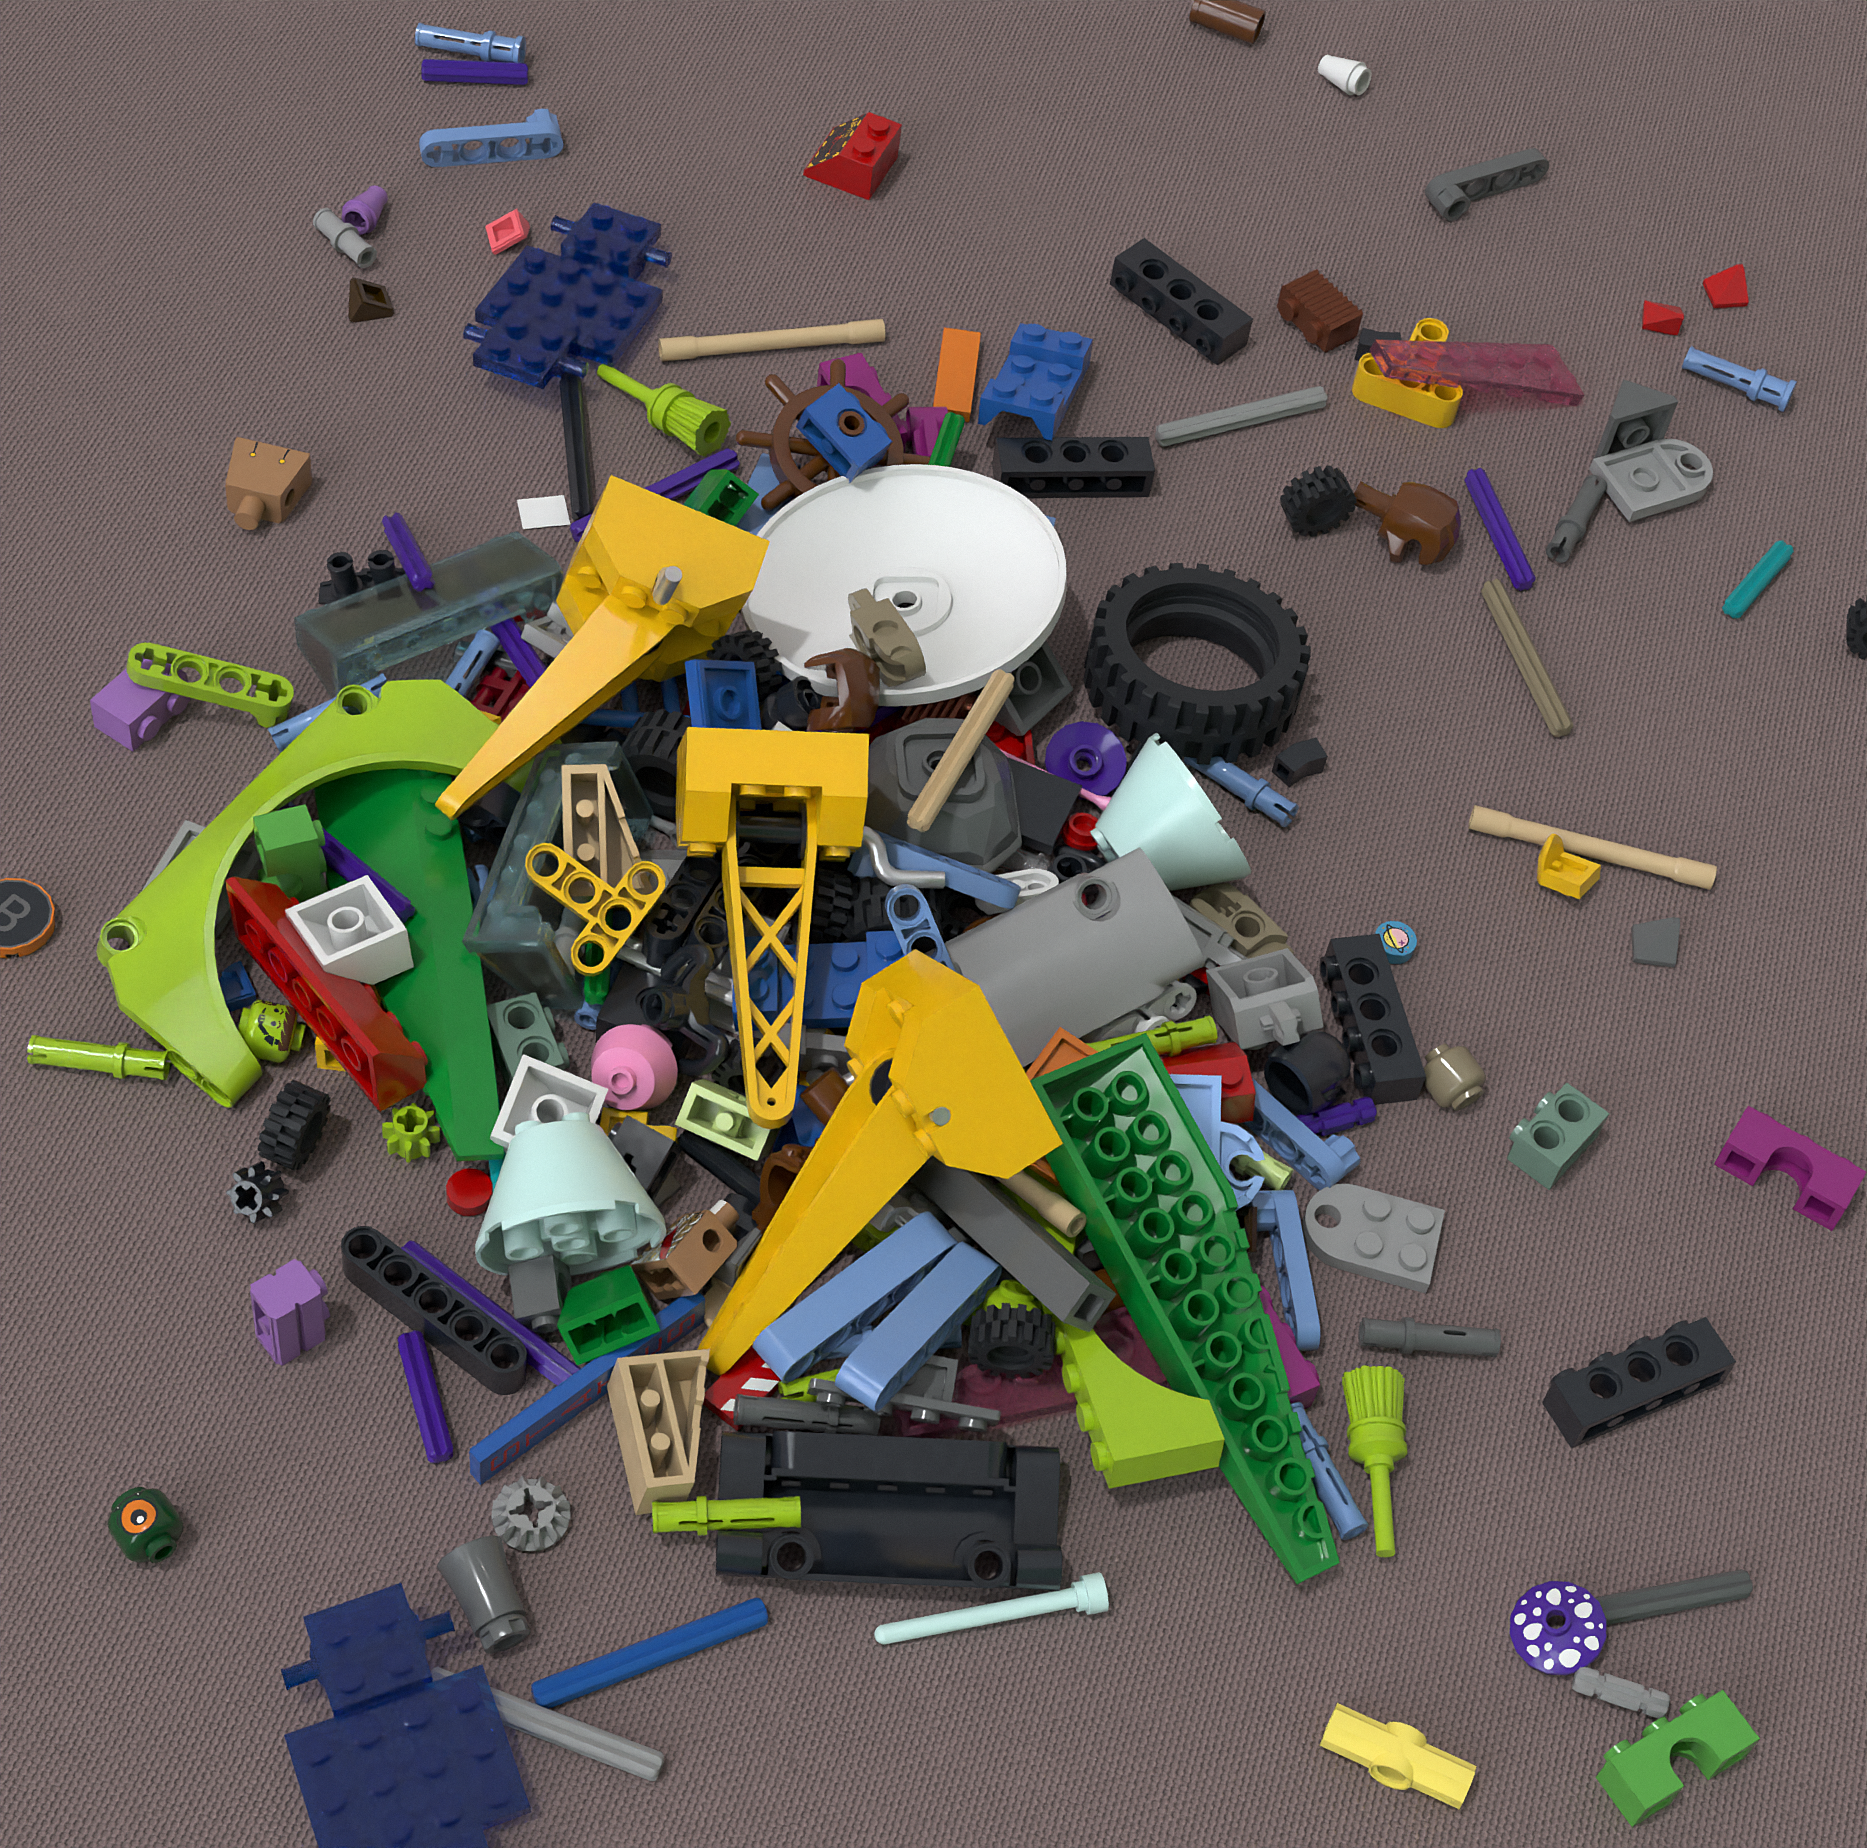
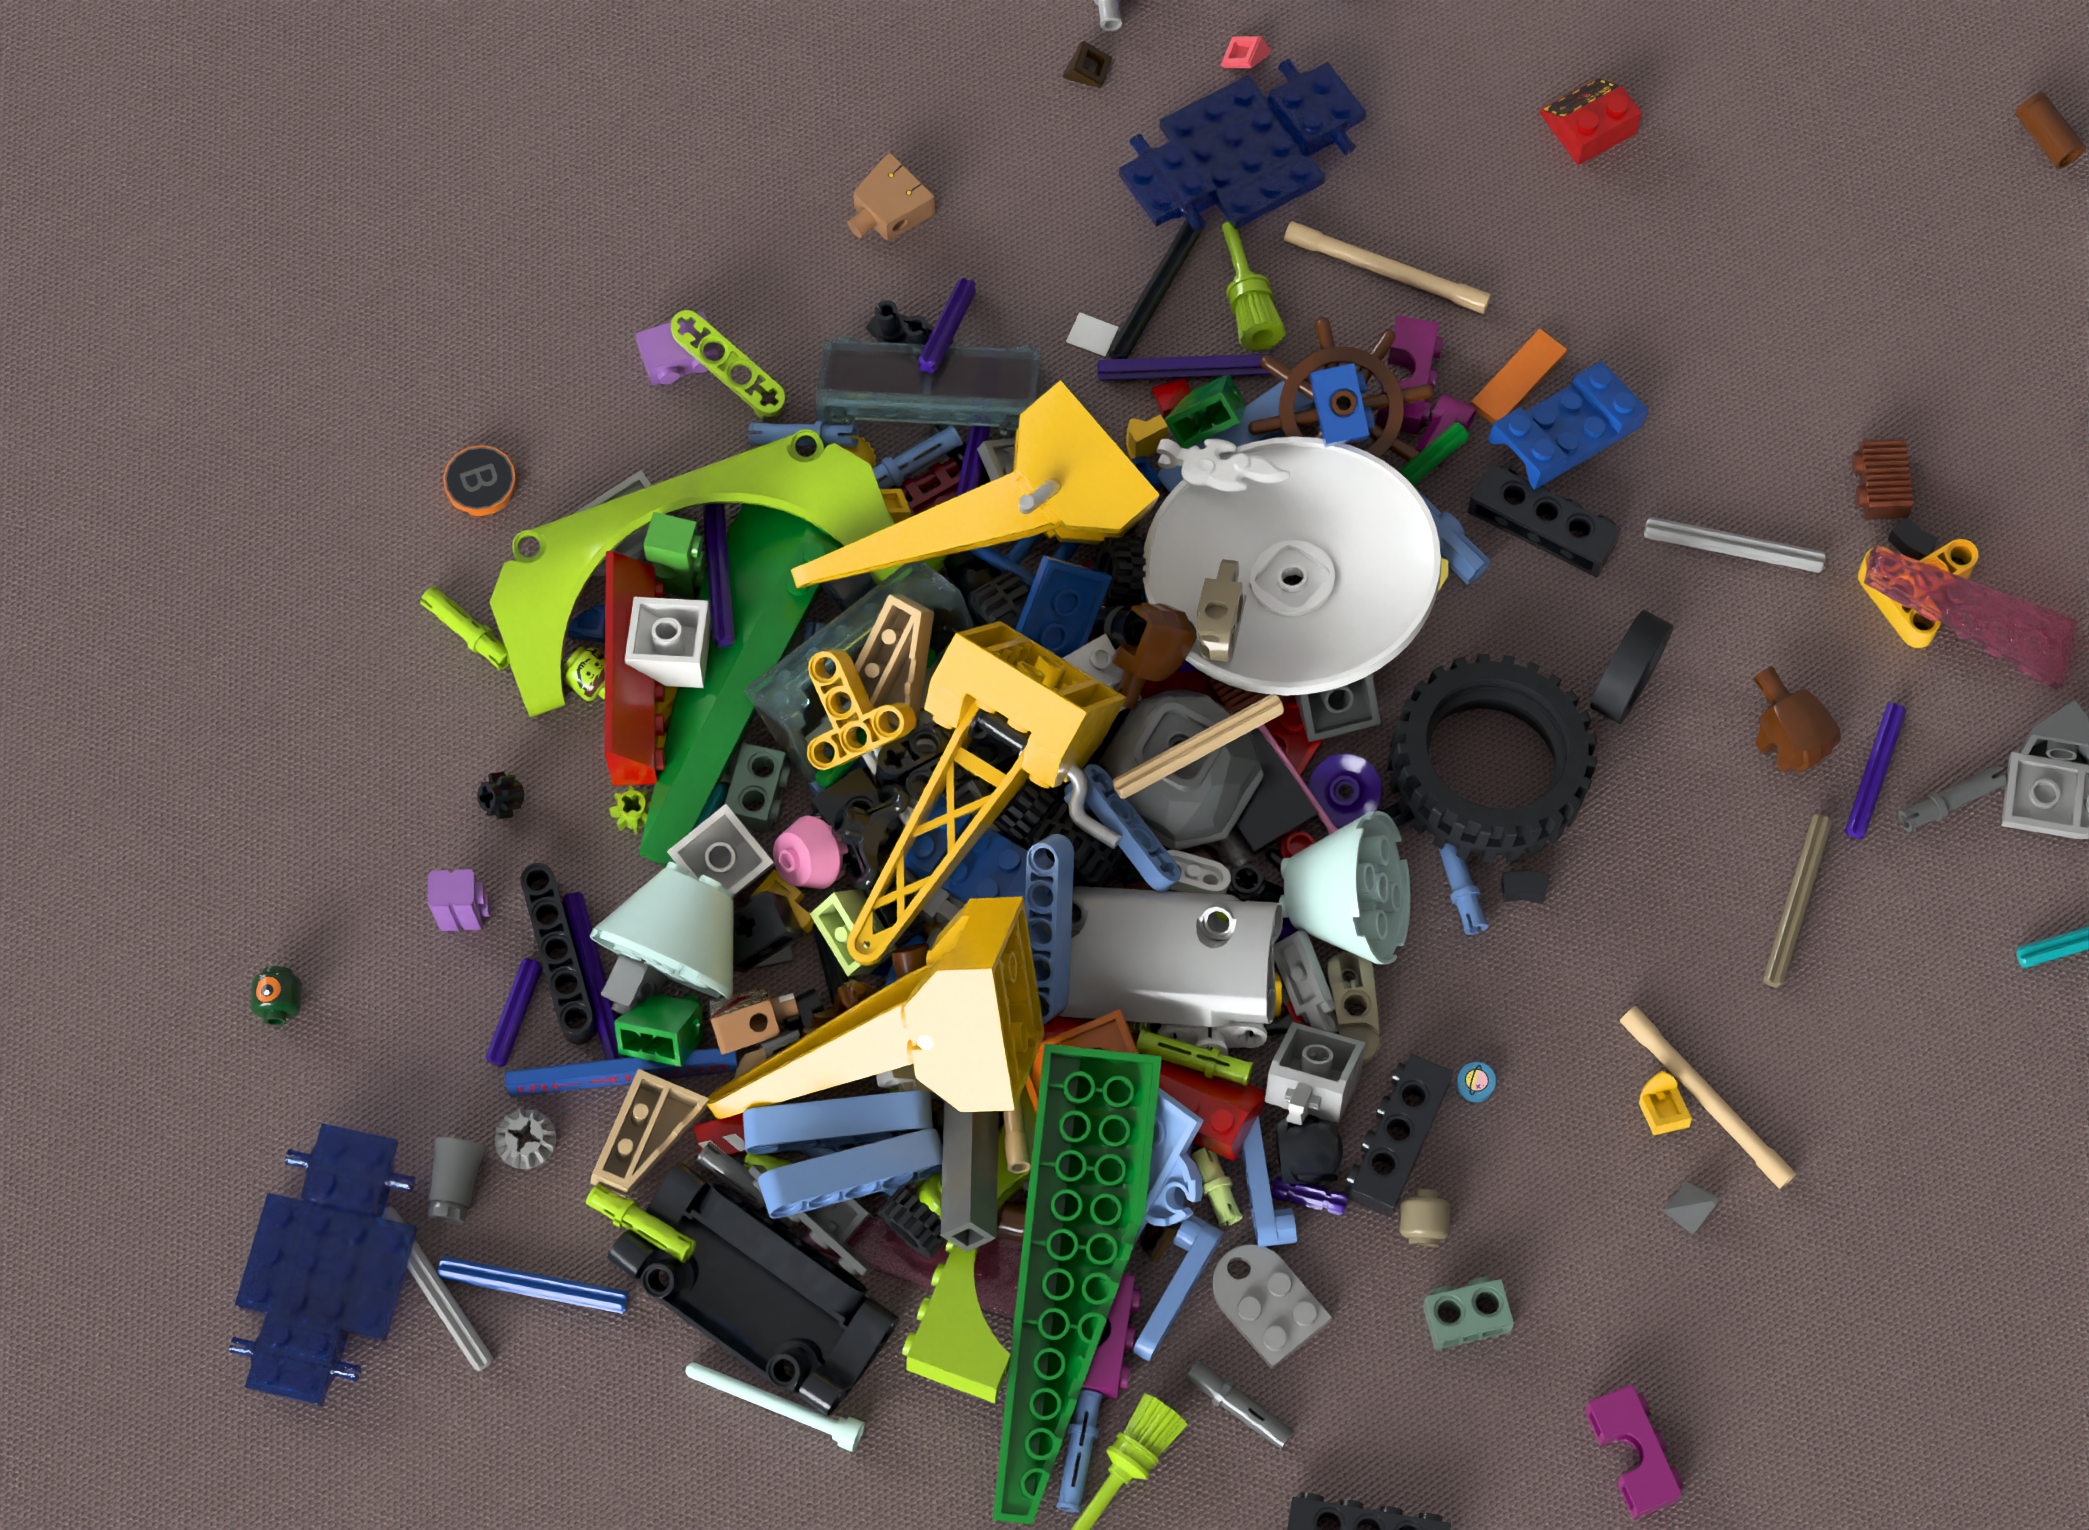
camera: 45 degrees right, 15 degrees up
(294, 1125) = (553, 760): black tyre -> none
(469, 1192) = (641, 872): red tile -> none
(788, 531) = (1206, 468): none -> white piece
(1181, 301) = (1761, 355): black brick -> none
(1255, 526) = (1631, 666): none -> black tyre
(1318, 501) = (1721, 664): black tyre -> none

